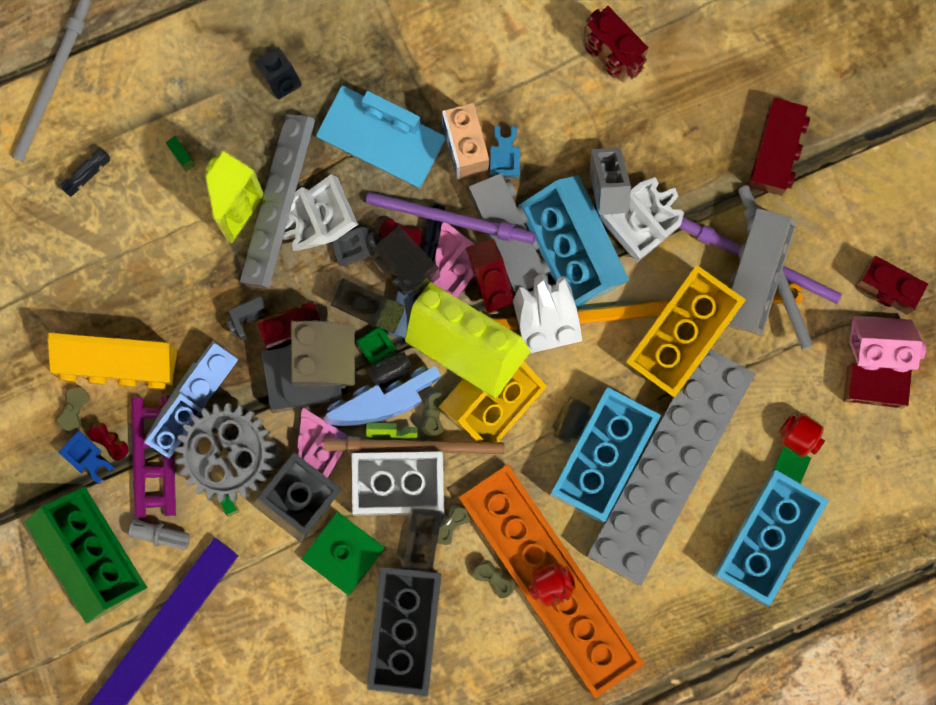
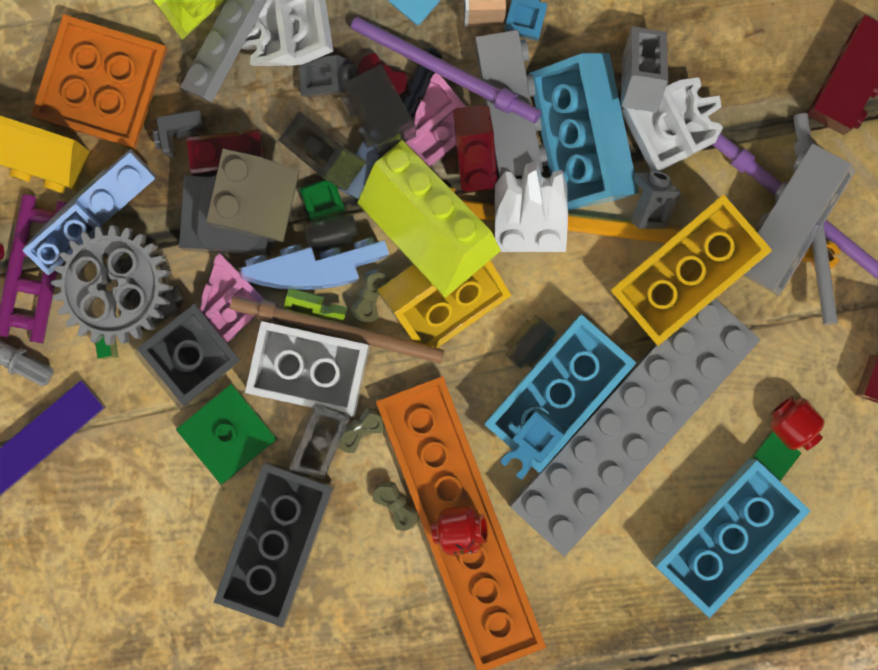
camera: 15 degrees right, 5 degrees up
(173, 293) = (99, 82): none -> orange plate
(595, 495) = (534, 440): none -> dark azure plate
(645, 282) = (656, 200): none -> dark grey bracket

